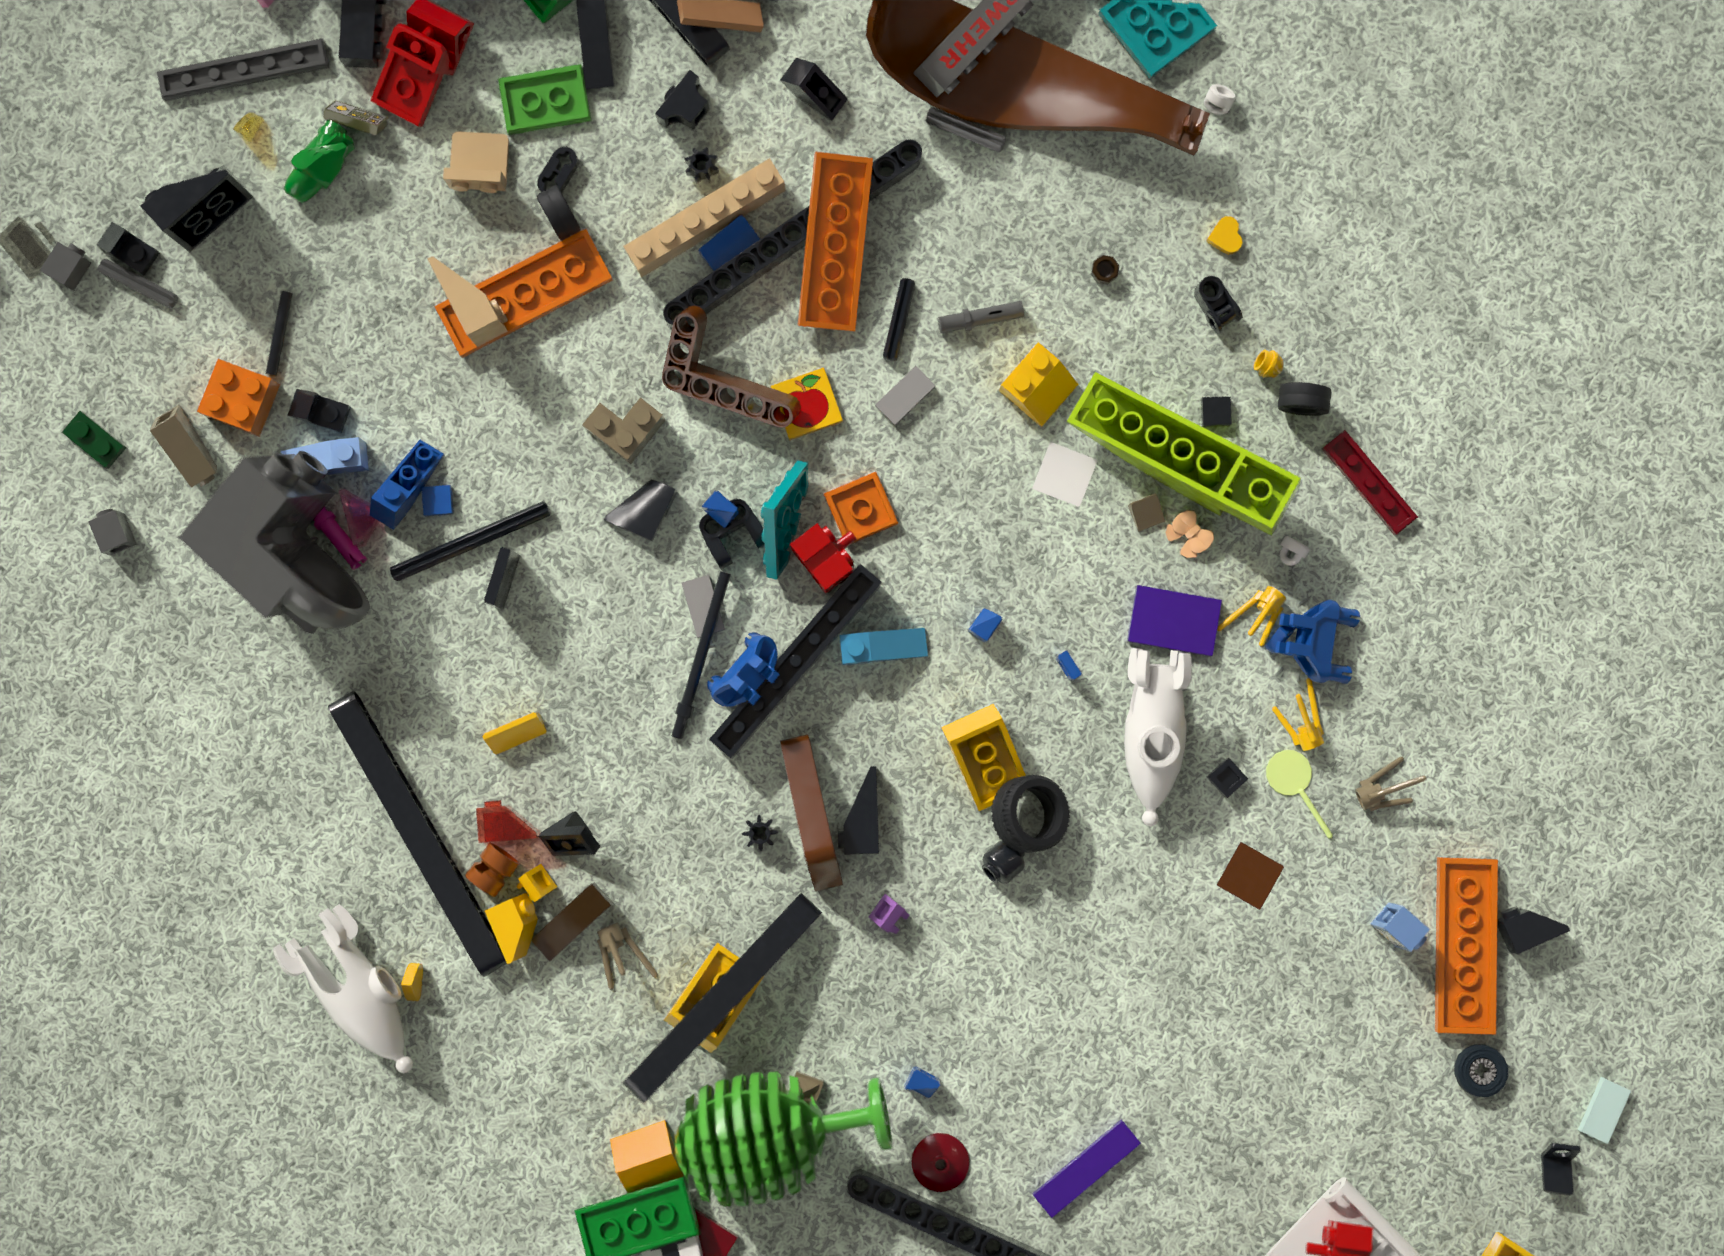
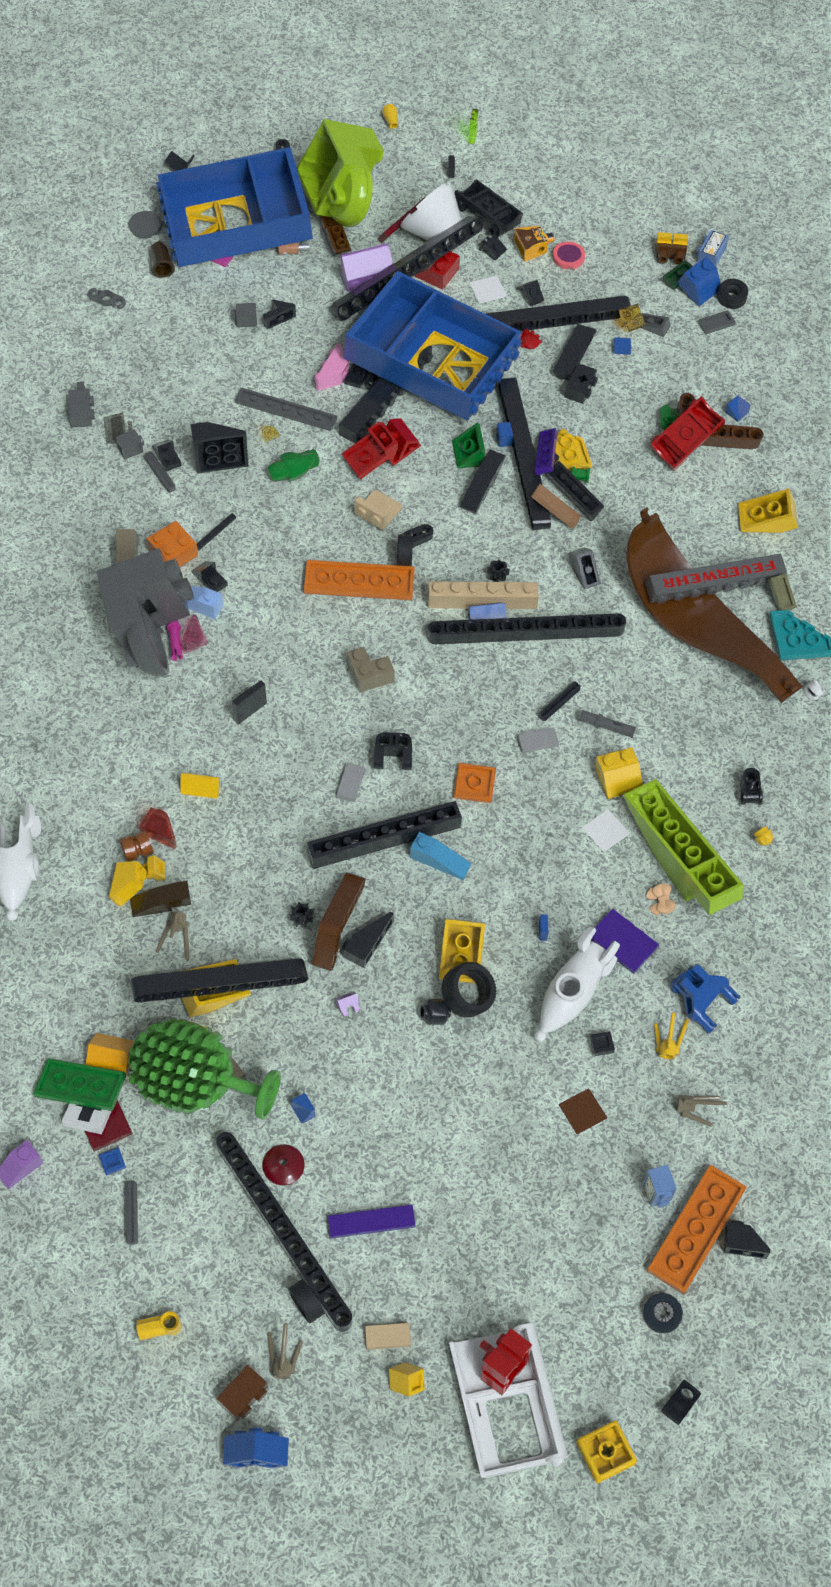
camera: 30 degrees right, 25 degrees down
(94, 439) = (82, 528): dark green plate -> none
(112, 532) = (58, 573): dark grey brick -> none
(355, 117) = (328, 456): olive tile -> none
(404, 485) = (228, 633): blue slope -> none
(412, 982) = (47, 880): yellow tile -> none
(418, 832) = (108, 808): black beam -> none
(437, 500) = (241, 652): blue tile -> none
(470, 541) = (244, 680): black axle -> none
(477, 314) = (328, 568): tan slope -> none
(544, 99) = (433, 500): bright green tile -> none
(569, 837) = (190, 853): black slope -> none
(644, 509) = (352, 716): black slope -> none
(683, 103) = (507, 538): black brick -> none
(684, 708) = (304, 827): black bar -> none
(718, 380) = (435, 675): reddish brown beam -> none
(720, 509) = (394, 730): blue slope -> none
(746, 673) = (351, 820): blue connector -> none
(780, 514) = (425, 755): teal plate -> none
(816, 401) = (479, 714): tile -> none
(824, 556) = (436, 785): red brick -> none
(835, 241) = (547, 639): orange plate -> none
(965, 129) = (657, 630): dark grey axle -> none
(985, 625) = (507, 880): blue slope -> none
(1105, 269) = (695, 738): dark brown tile -> none
(1146, 512) = (642, 873): dark tan slope -> none
(1216, 411) = (719, 843): black tile -> none
(1225, 236) = (777, 759): yellow tile -> none
(1269, 604) = (684, 960): yellow plant -> none
(1289, 775) = (643, 1067): yellowish green piece -> none
(1291, 544) = (719, 941): white tile -> none
(1304, 399) = (774, 861): black tyre -> none
(1369, 482) = (789, 933): dark red tile -> none
(1604, 1110) = (732, 1388): light aqua tile -> none

